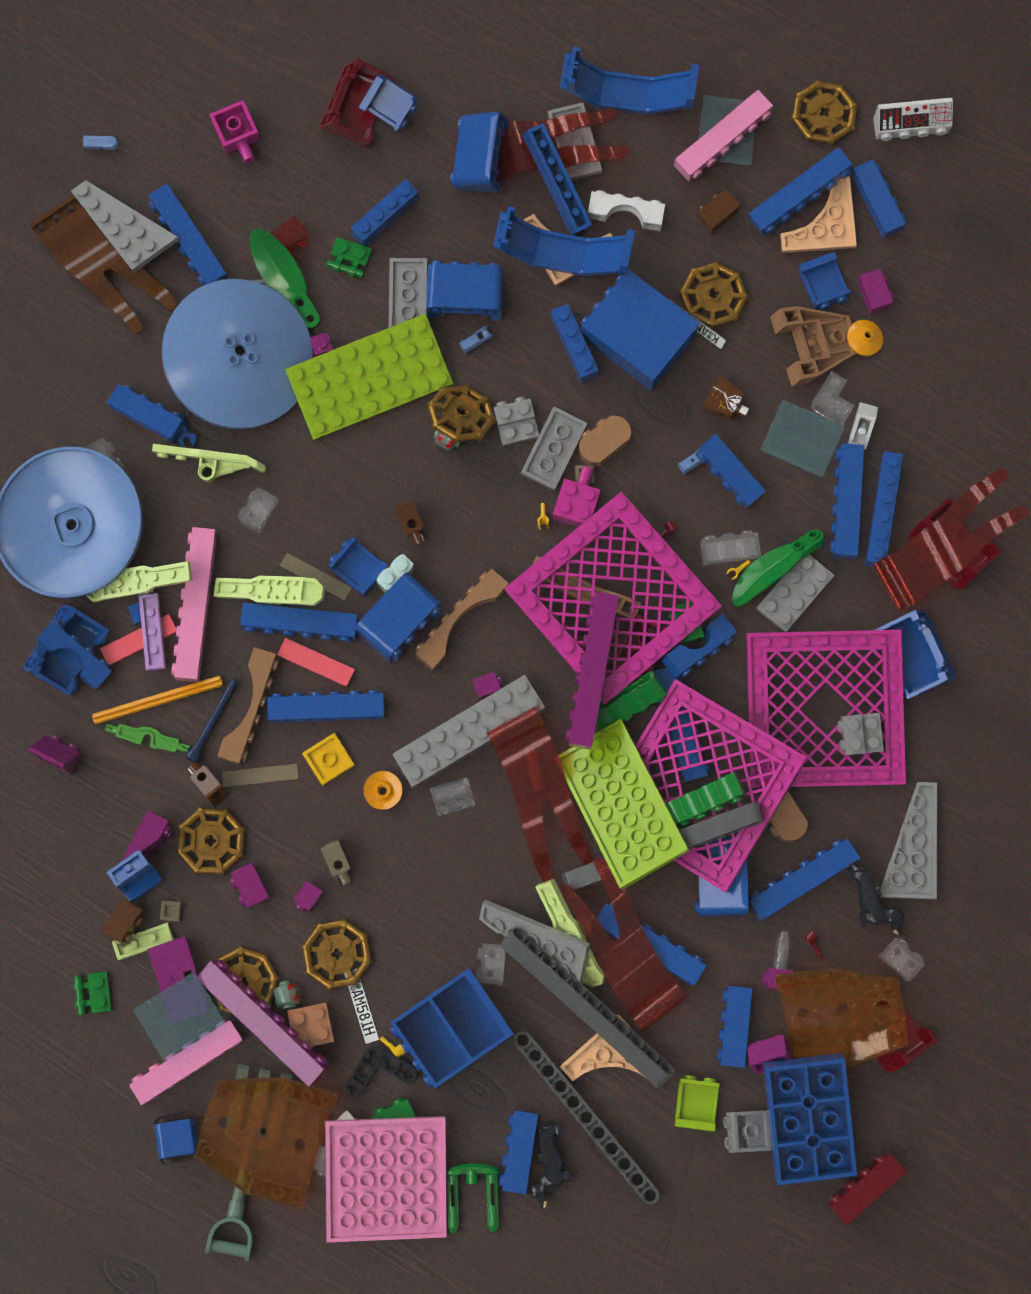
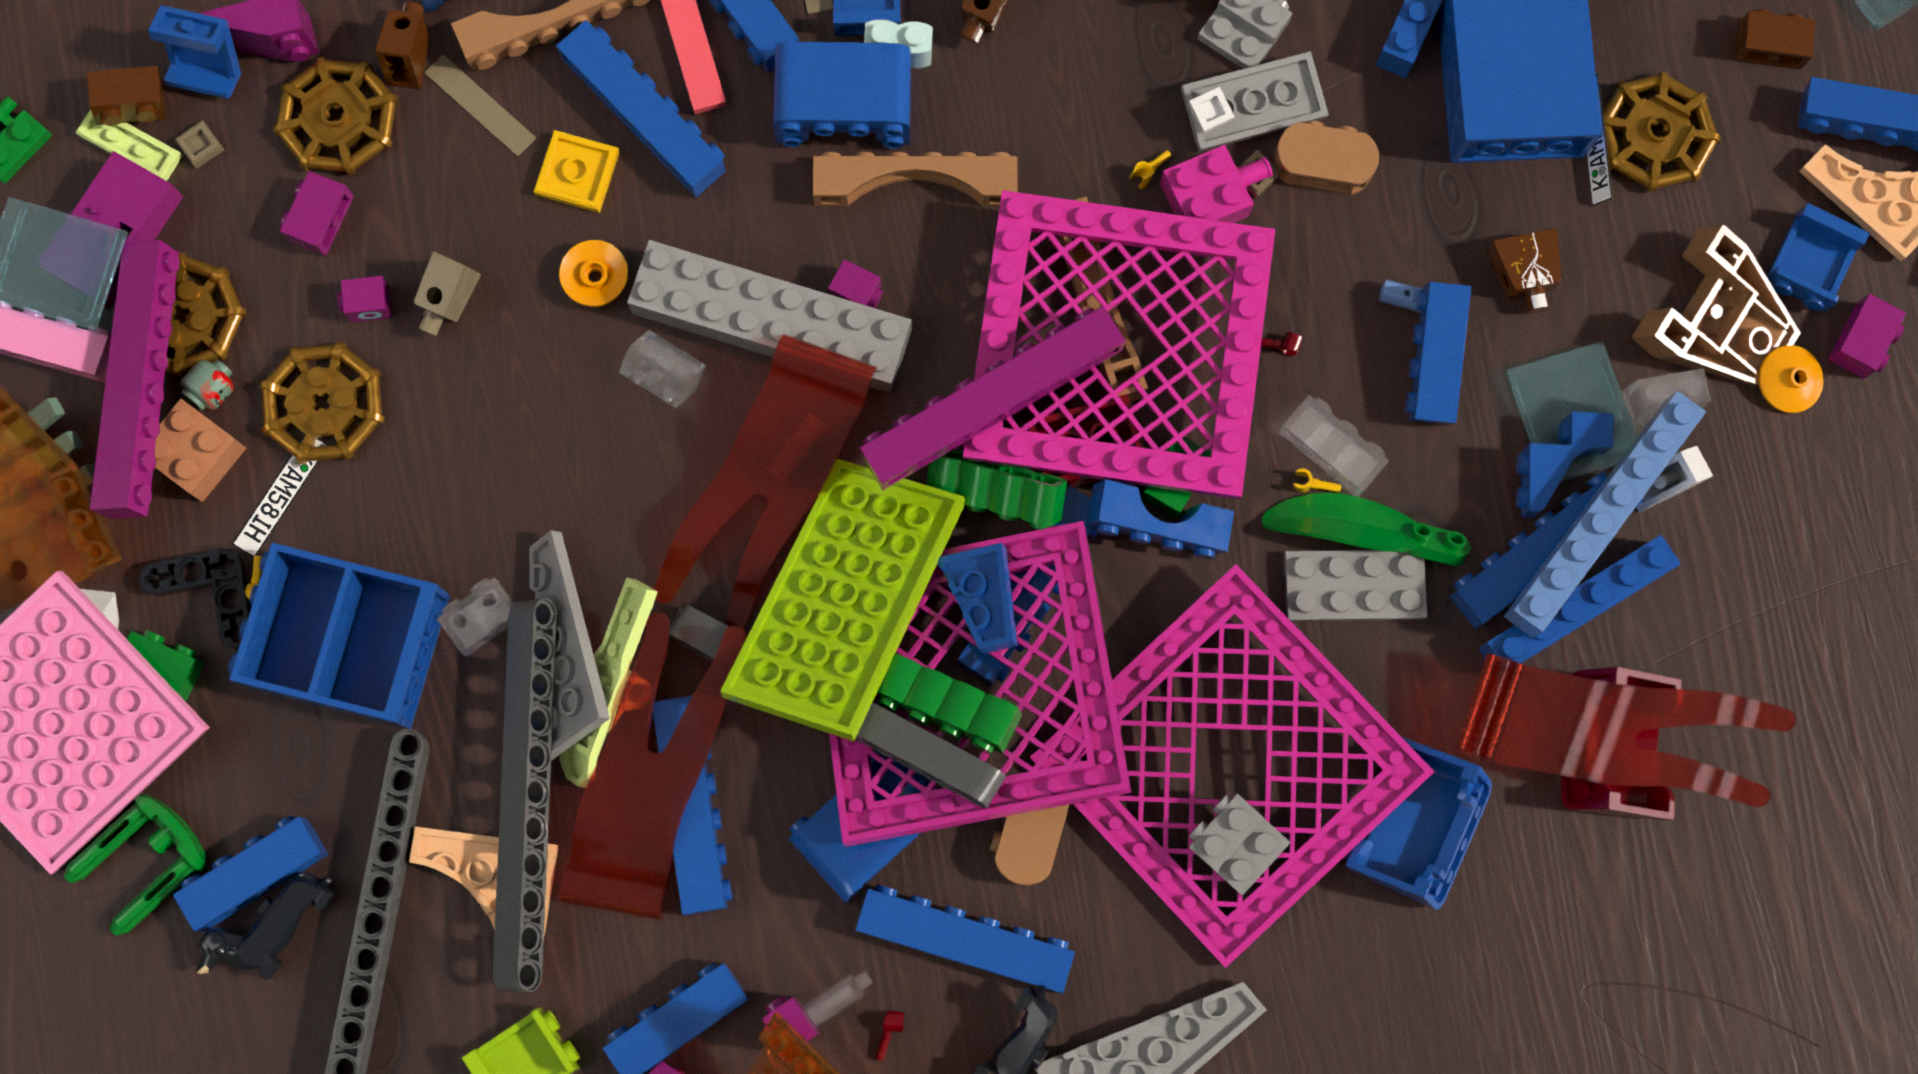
camera: 45 degrees right, 0 degrees up
(543, 470) = (1211, 110): none -> white plate
(671, 746) = (983, 591): none -> blue wing
(815, 470) = (1545, 464): none -> blue arch
(857, 467) = (1604, 514): none -> medium blue brick

